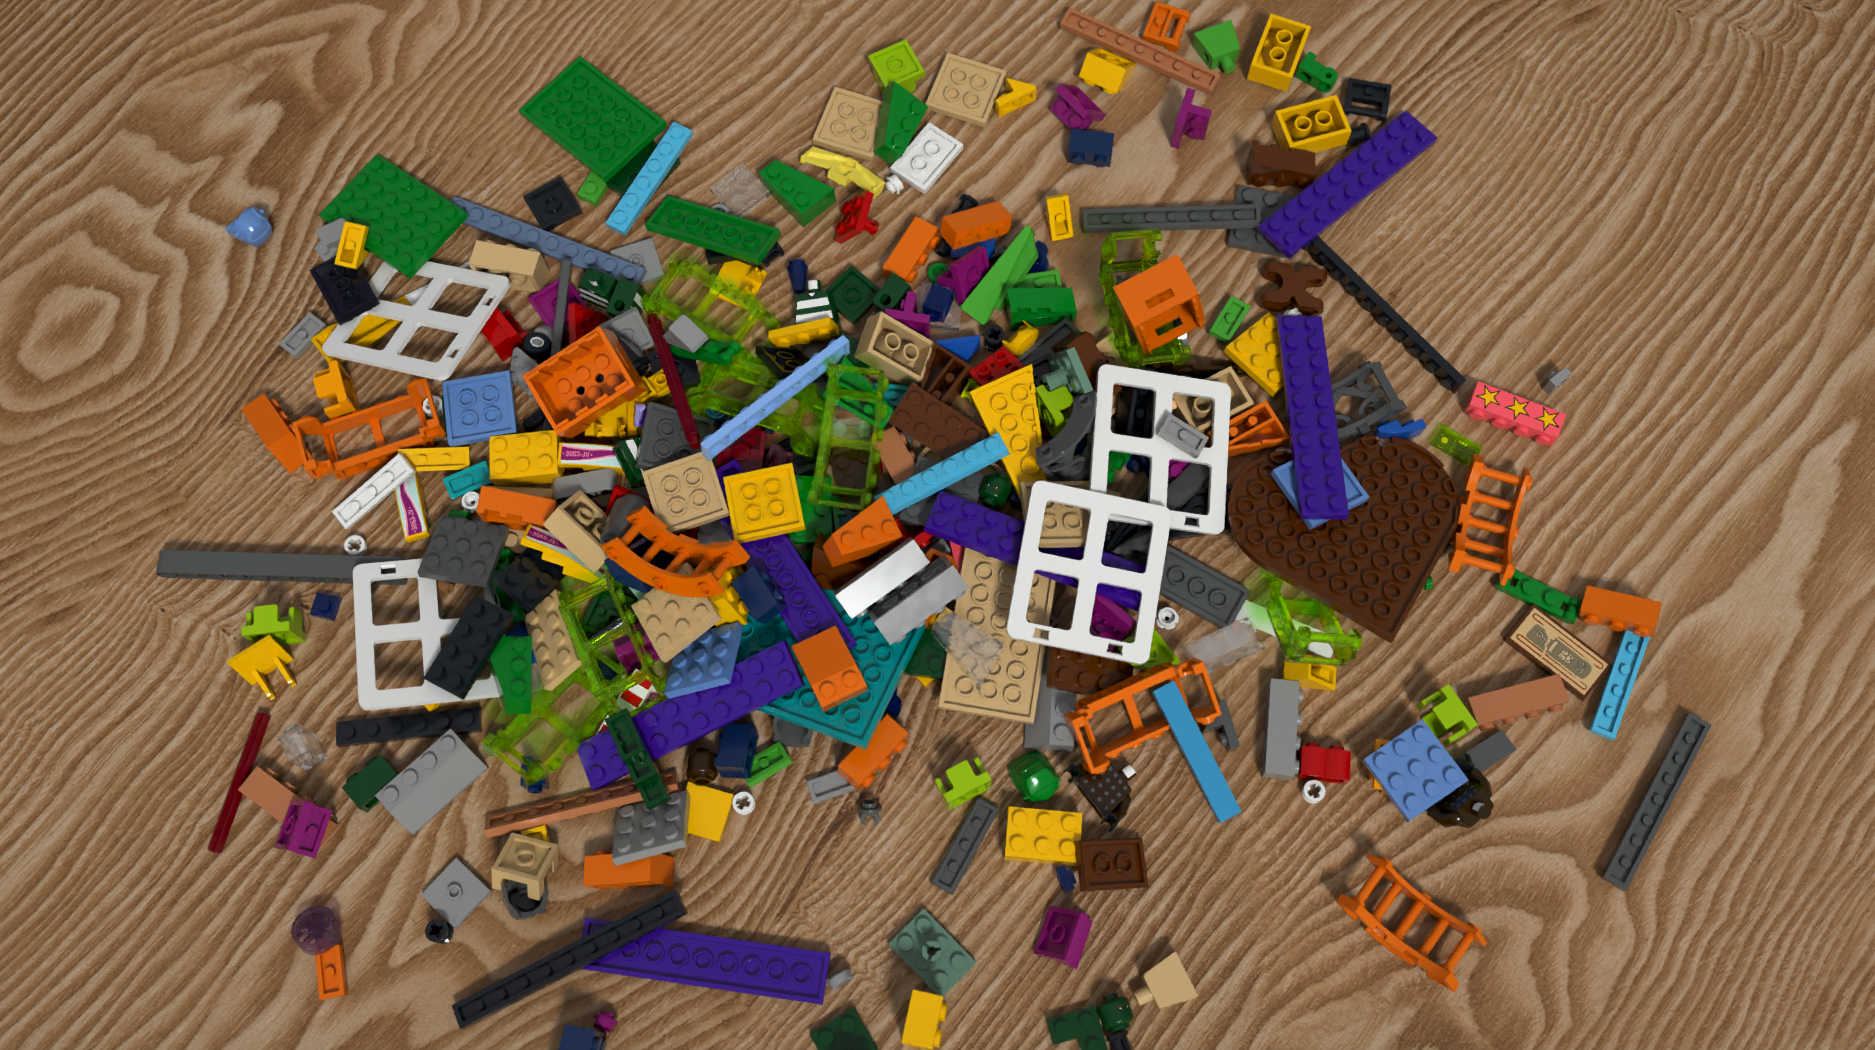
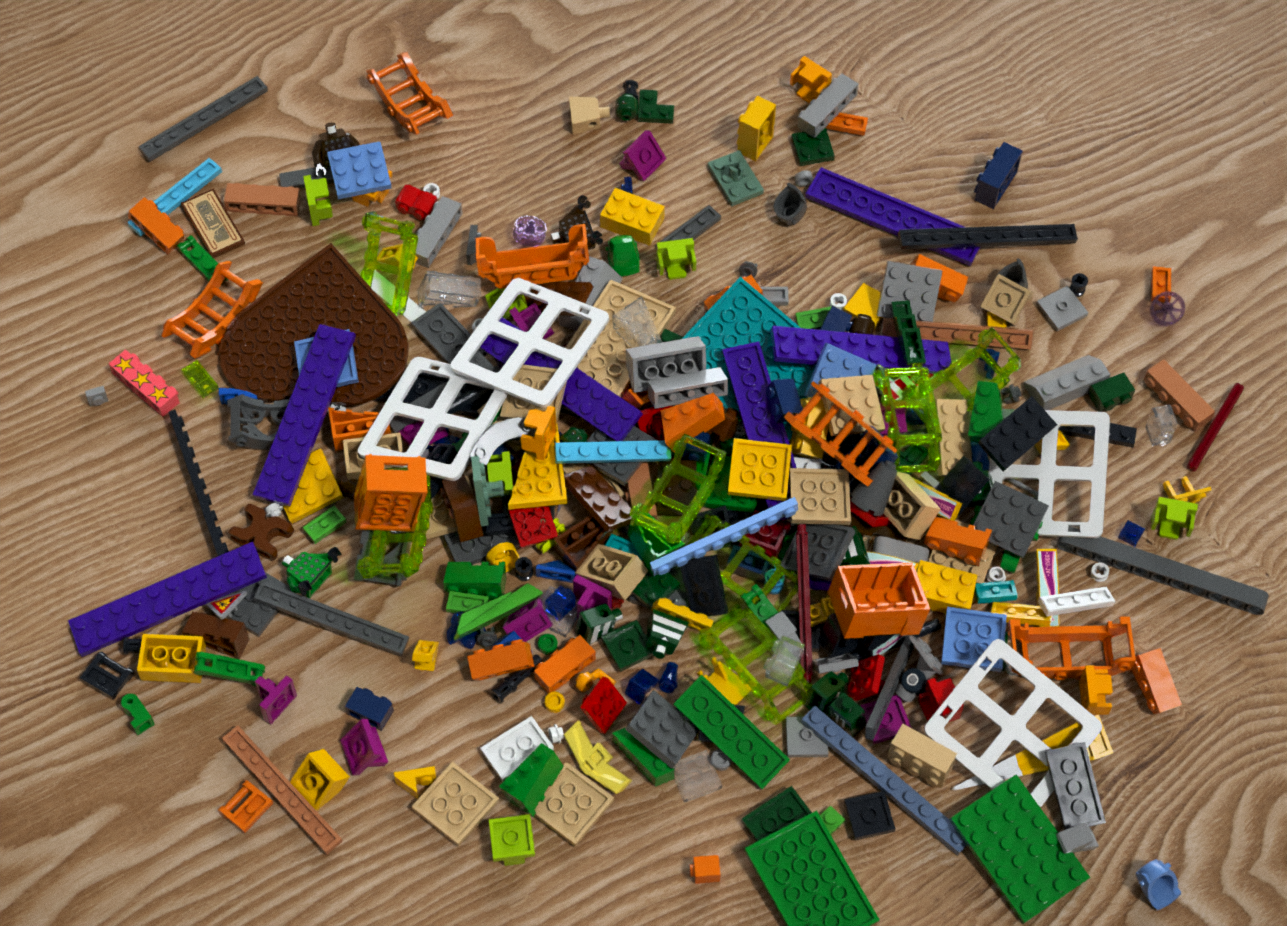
camera: 165 degrees left, 10 degrees down
(298, 340) = (1119, 763): light grey plate -> none
(303, 828) = (1169, 362): magenta bracket -> none
(351, 246) = (1061, 816): yellow slope -> none
(570, 584) = (926, 478): none -> light grey plate
(605, 1021) = (972, 202): magenta plate -> none
(649, 178) = (773, 804): medium azure plate -> none
(672, 292) = (784, 660): none -> clear brick
(700, 104) = (705, 869): none -> orange brick
(778, 456) = (735, 515): clear pink plate -> none
(785, 203) = (662, 729): none -> dark grey plate
(823, 258) = (640, 685): none -> clear blue bracket
(829, 668) = (748, 331): orange slope -> none
(842, 917) = (790, 205): none -> dark grey helmet
(883, 244) = (586, 680): none -> light orange plate
(906, 216) = (554, 702): none -> yellow tile
(1029, 451) = (546, 431): none -> light orange panel
(1111, 864) = (593, 183): reddish brown tile -> none
(1163, 768) = (529, 231): none -> clear purple wheel
(1182, 435) = (414, 417): light grey plate -> none
(1196, 751) = (502, 230): dark azure tile -> none
(1217, 46) = (209, 767): bright green torso -> none
(1220, 256) = (309, 571): none -> green torso
(1246, 131) = (228, 668): none -> green plate
(1278, 52) = (161, 737): yellow brick -> none
(1284, 187) = (224, 605): none -> piece

